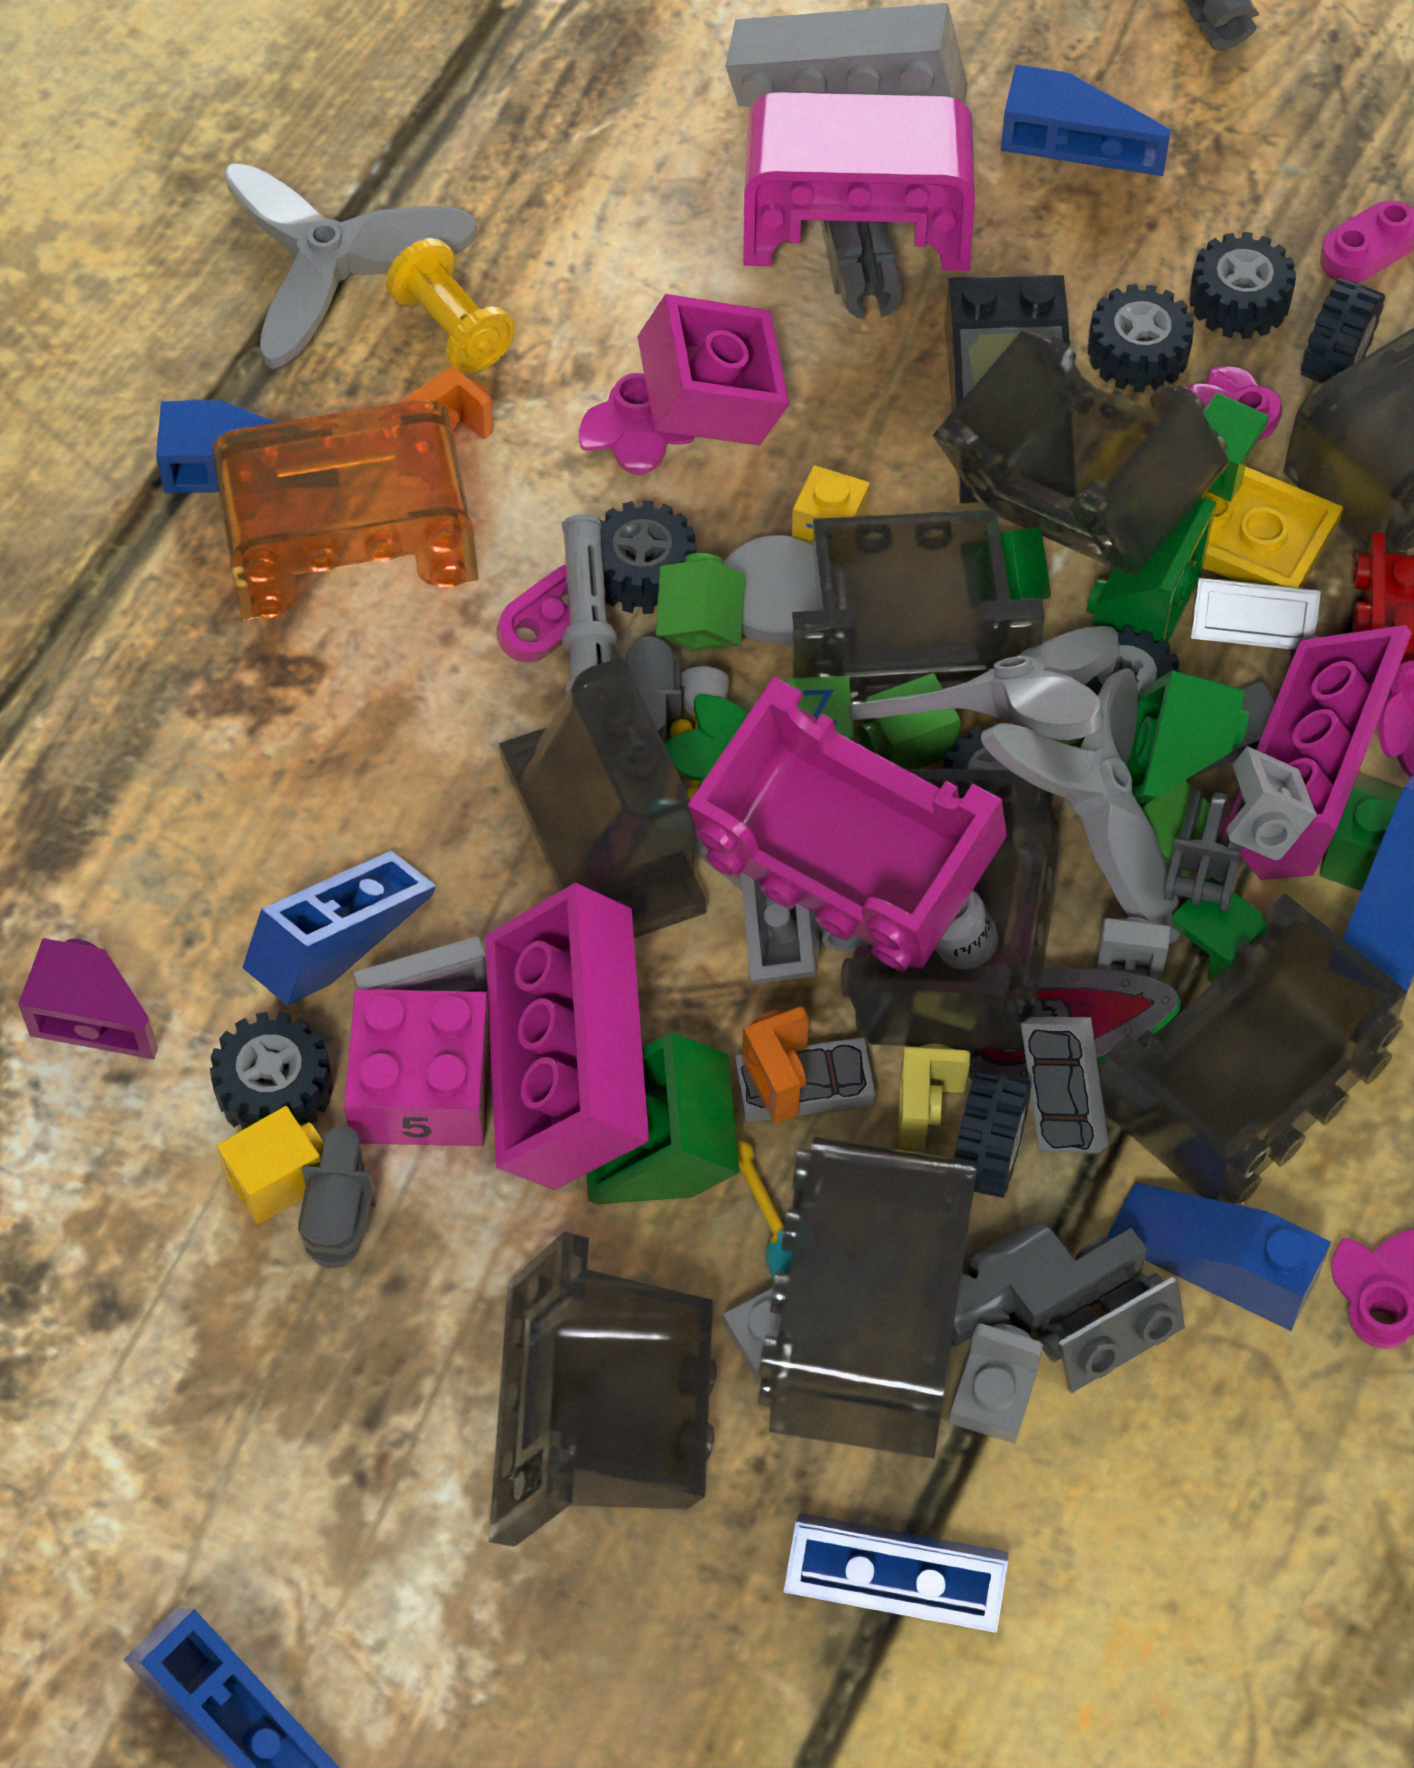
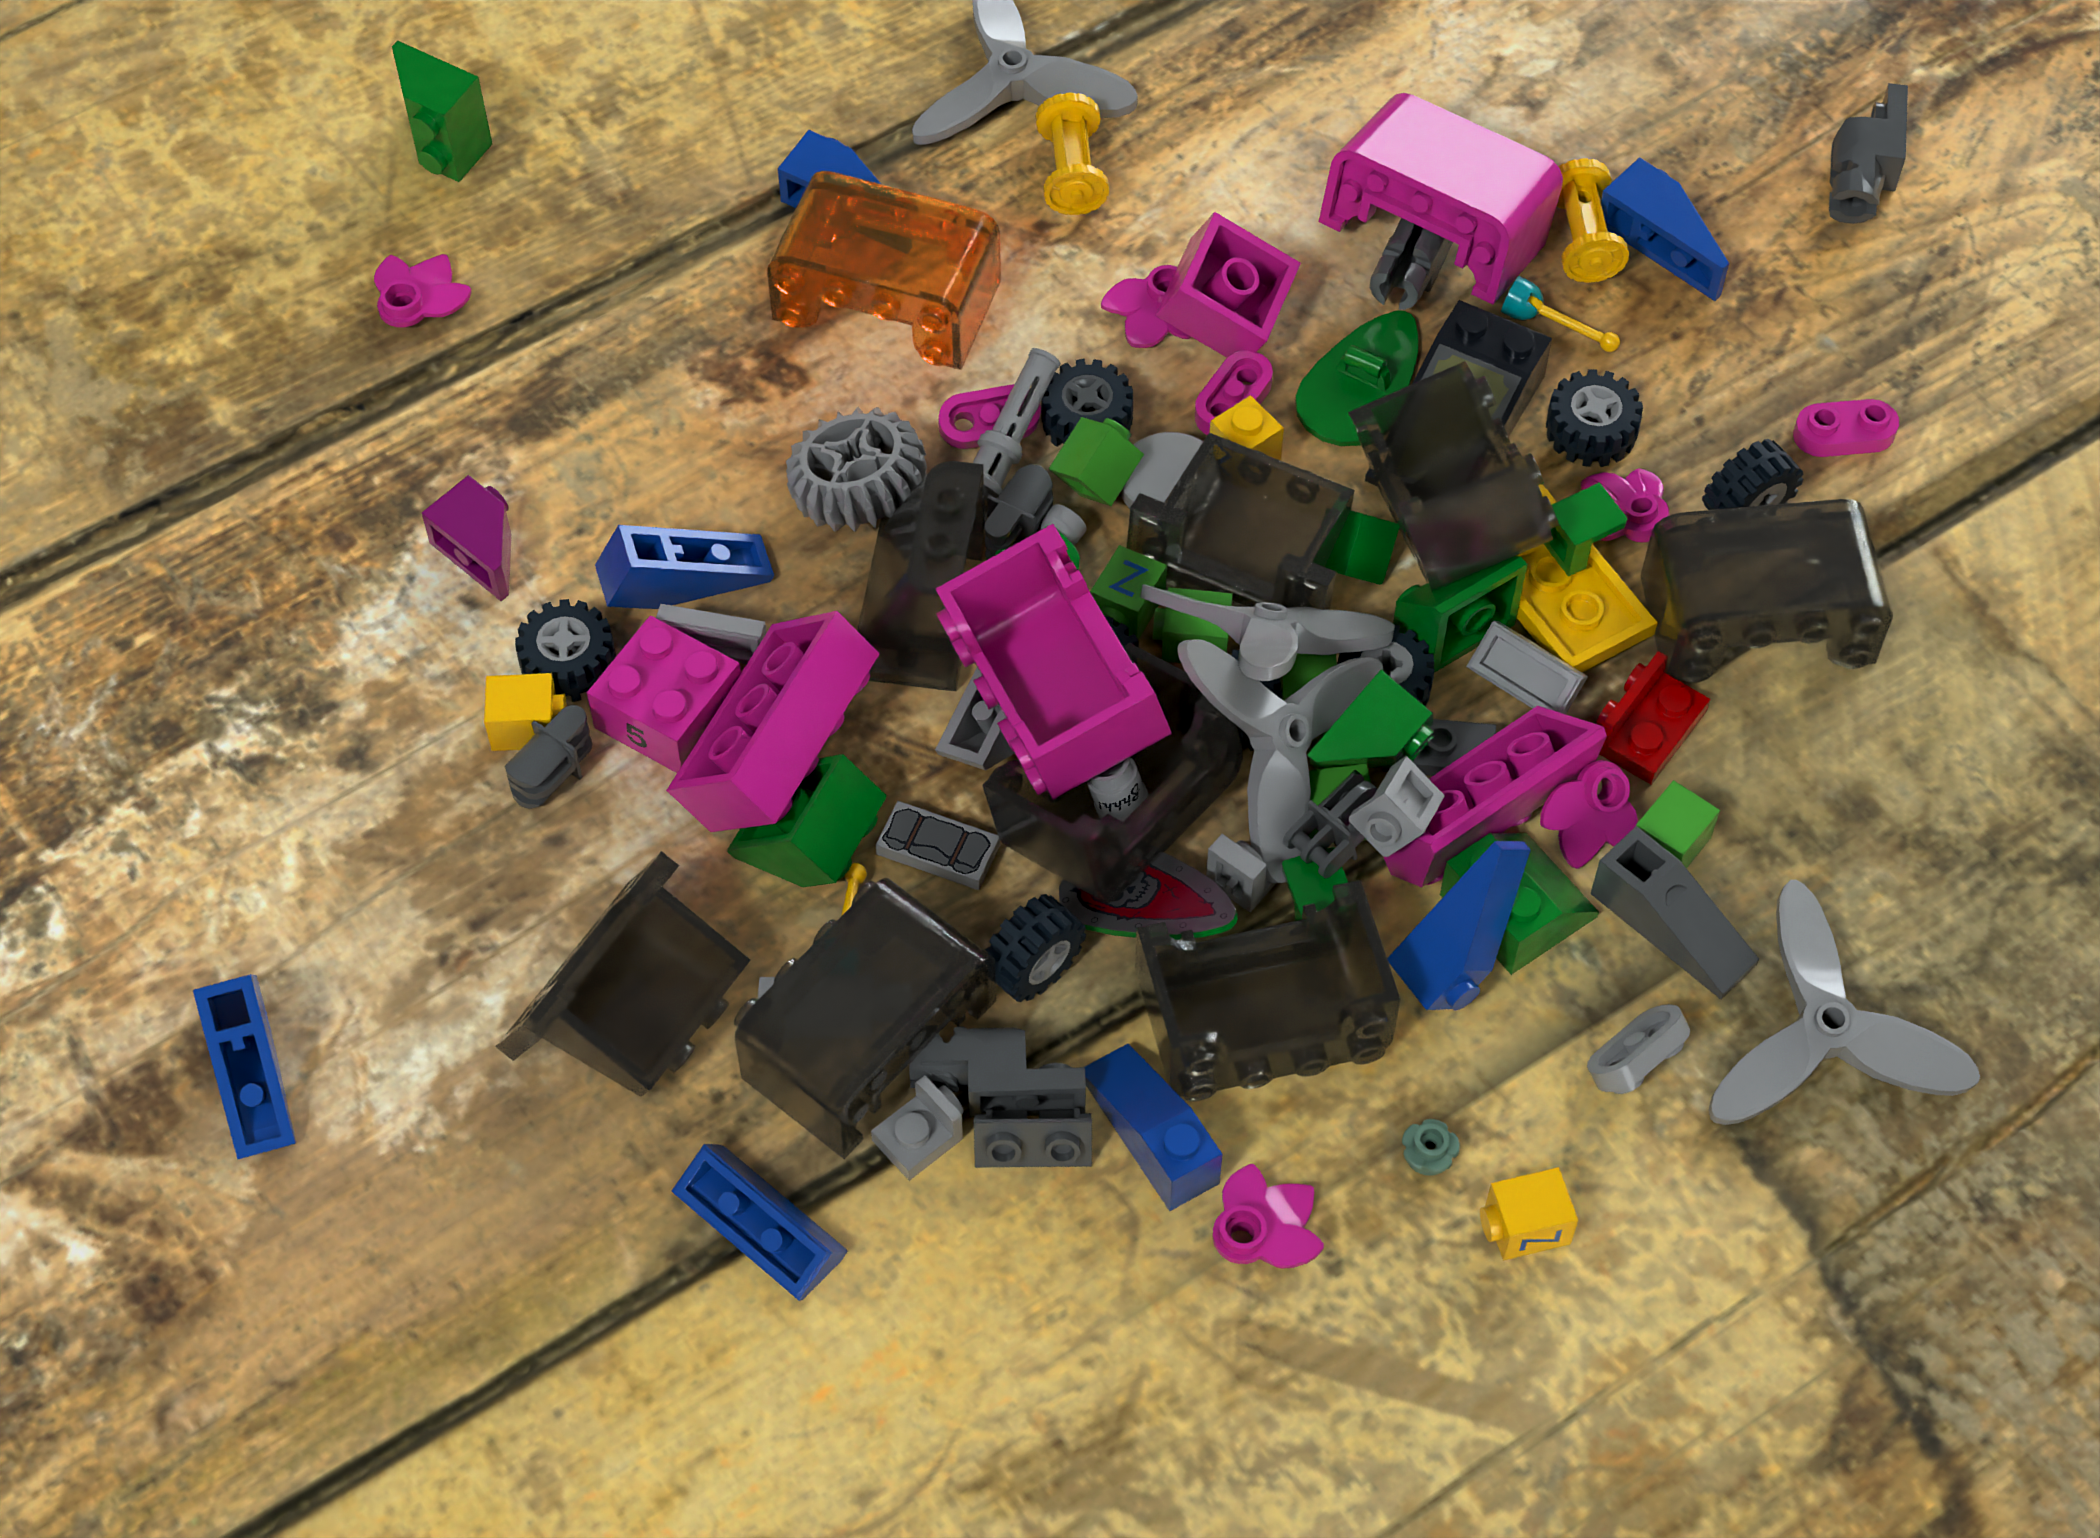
camera: 30 degrees right, 0 degrees up
(456, 731) = (855, 468): none -> light grey gear
(463, 398) = (1022, 227): orange bracket -> none
(772, 1061) = (914, 806): orange bracket -> none
(778, 479) = (1227, 389): none -> dark pink plate
(848, 53) = (1512, 95): light grey wedge -> none
(887, 407) = (1355, 372): none -> green shield
(923, 1078) = (1012, 888): light yellow bracket -> none
(995, 255) = (1527, 301): none -> hinge
(1029, 174) = (1594, 251): none -> yellow hose
(1065, 1084) = (1110, 940): tile -> none
(1242, 285) = (1724, 402): black wheel -> none

